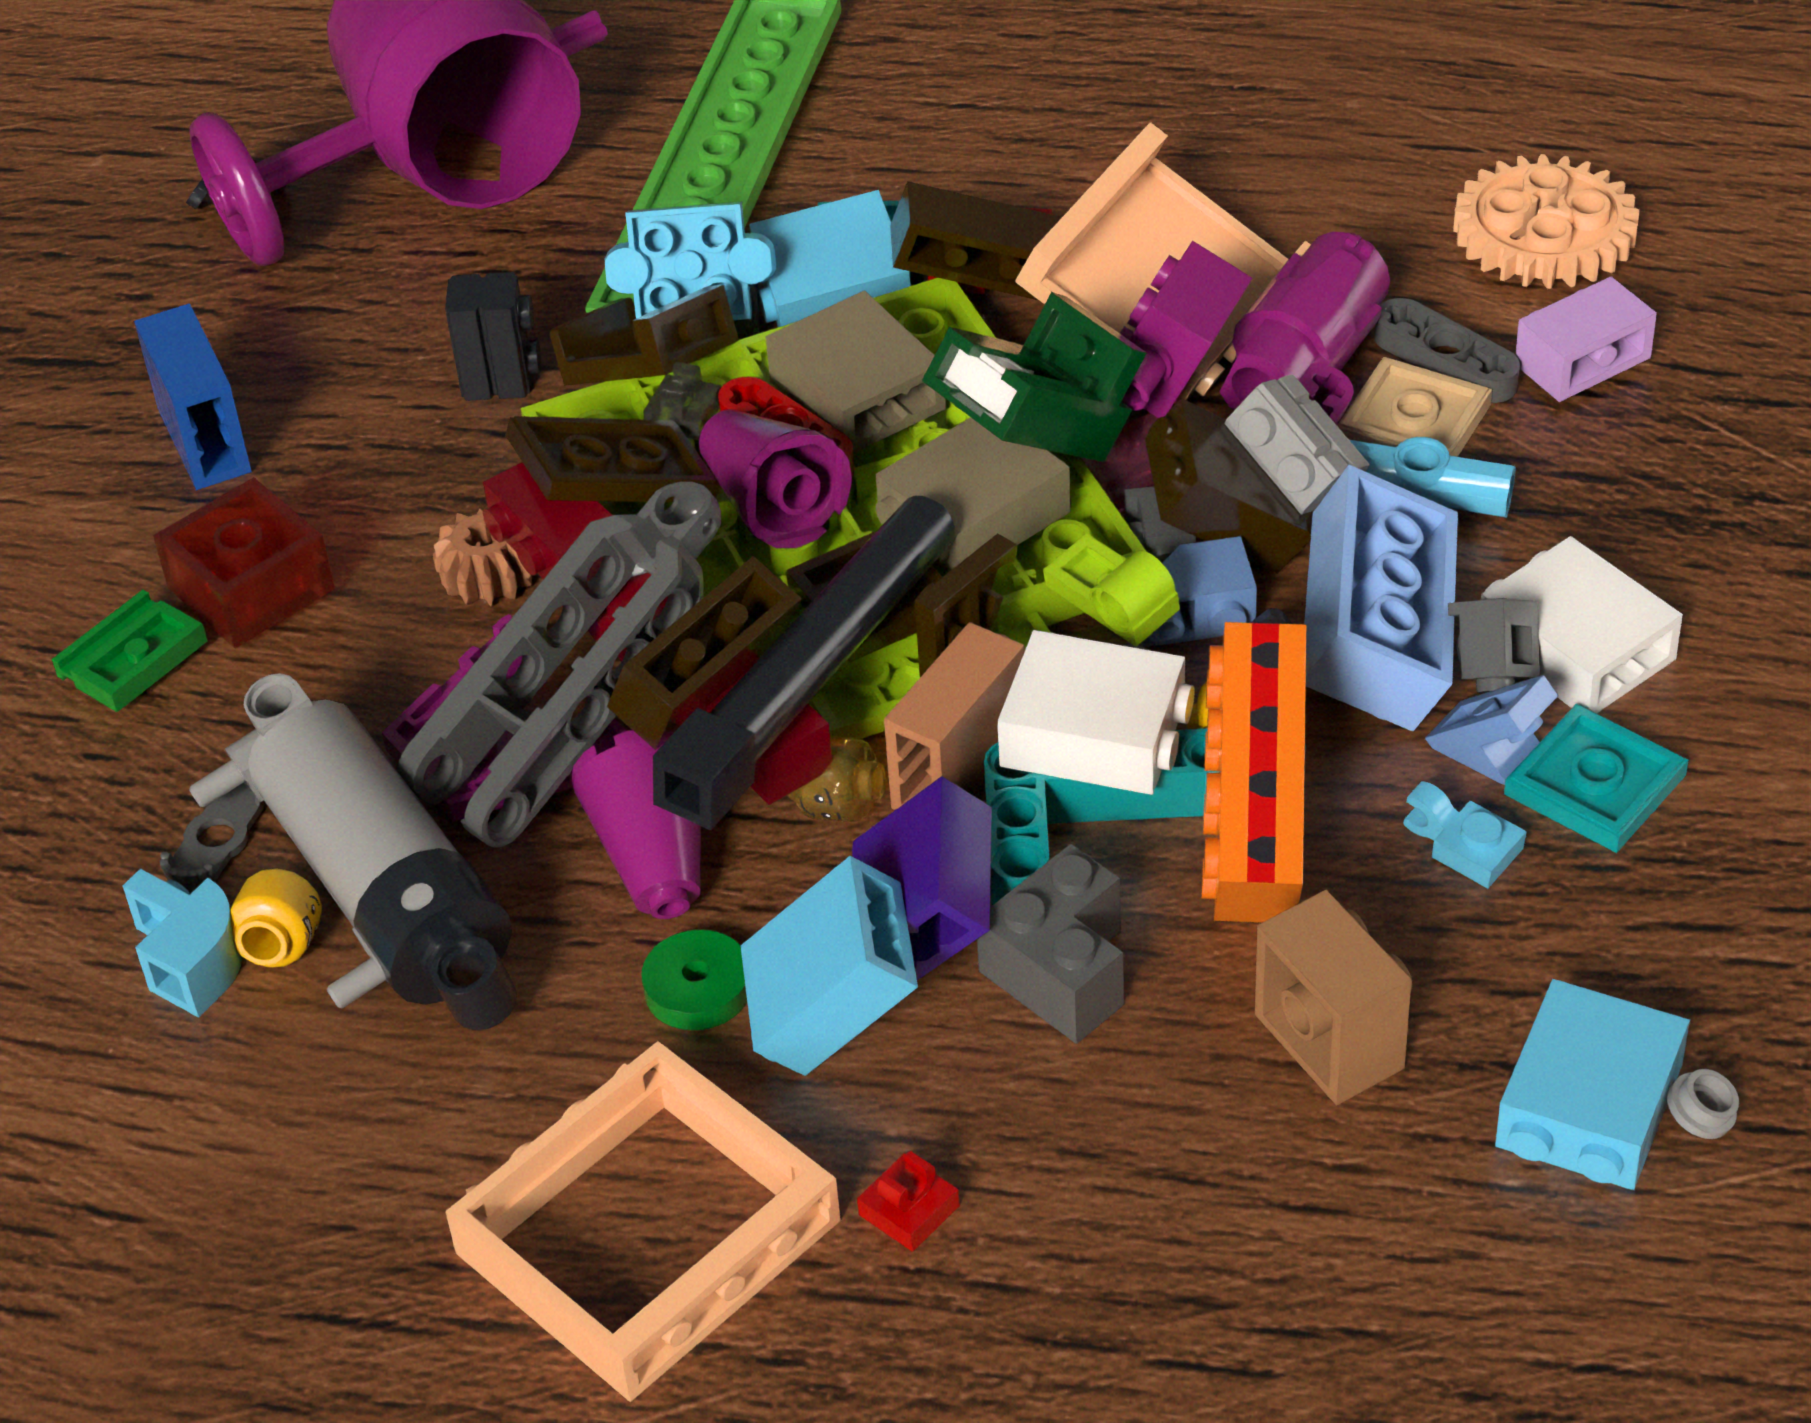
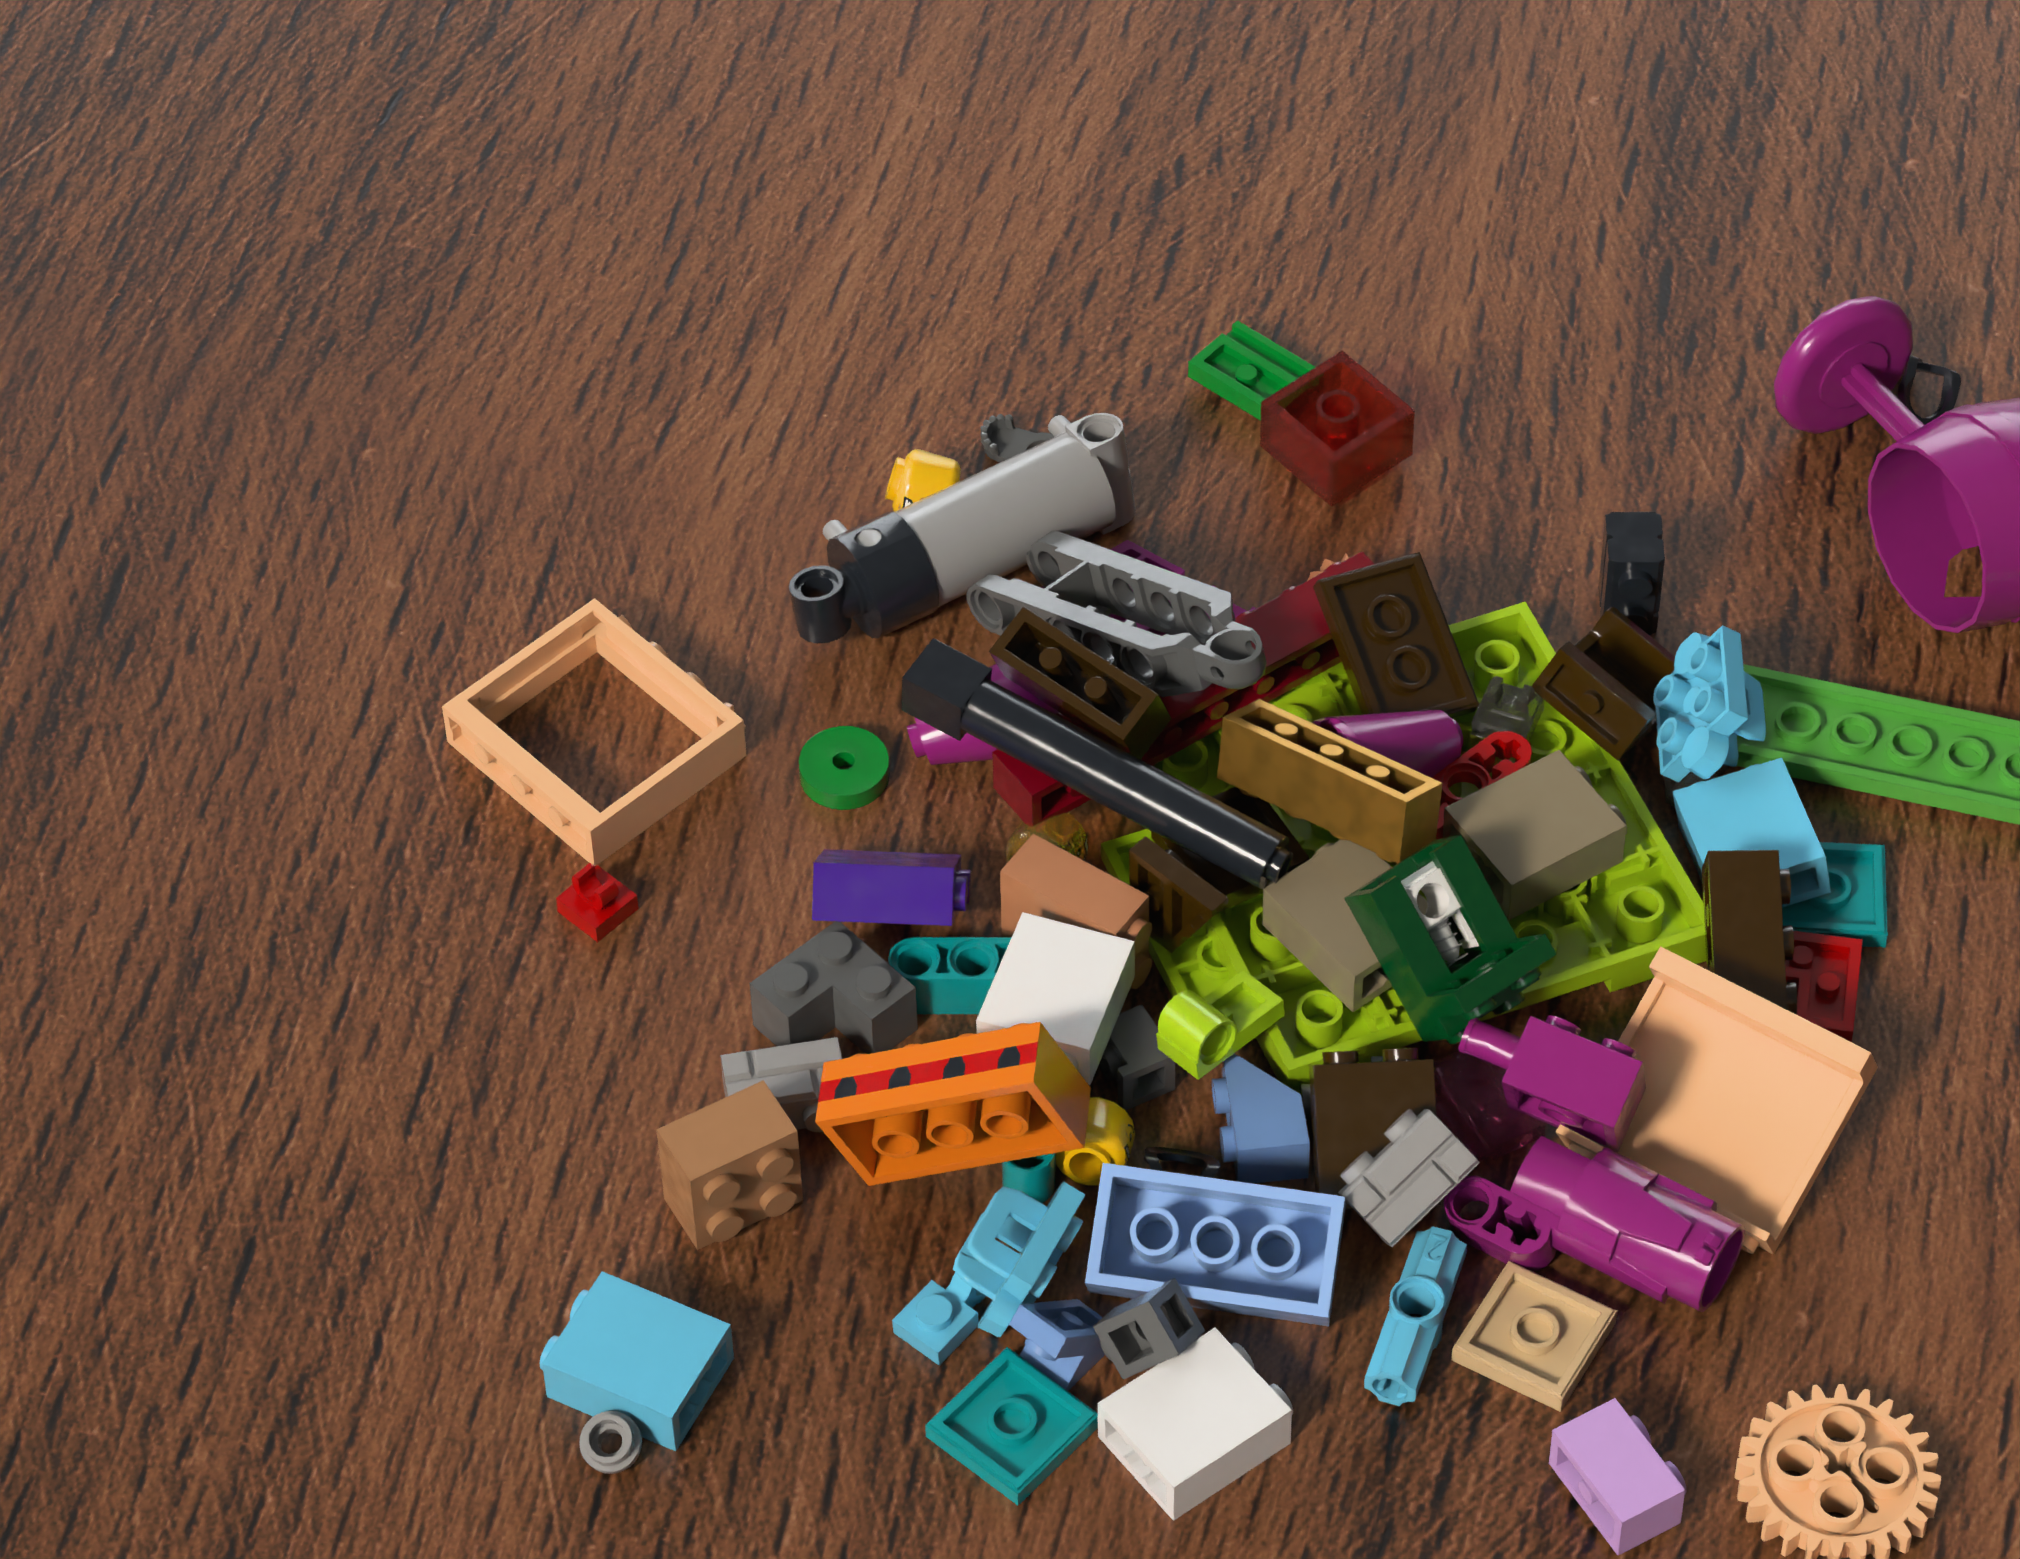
camera: 90 degrees right, 5 degrees up
(188, 940) = (895, 431): medium azure brick -> none
(193, 396) = (1553, 368): blue brick -> none
(828, 966) = (798, 821): medium azure brick -> none
(837, 462) = (1329, 781): none -> pearl gold brick
(1193, 982) = (789, 1071): none -> light grey brick
(1414, 330) = (1639, 1346): dark grey beam -> none
(1421, 733) = (1032, 1229): none -> medium azure piece

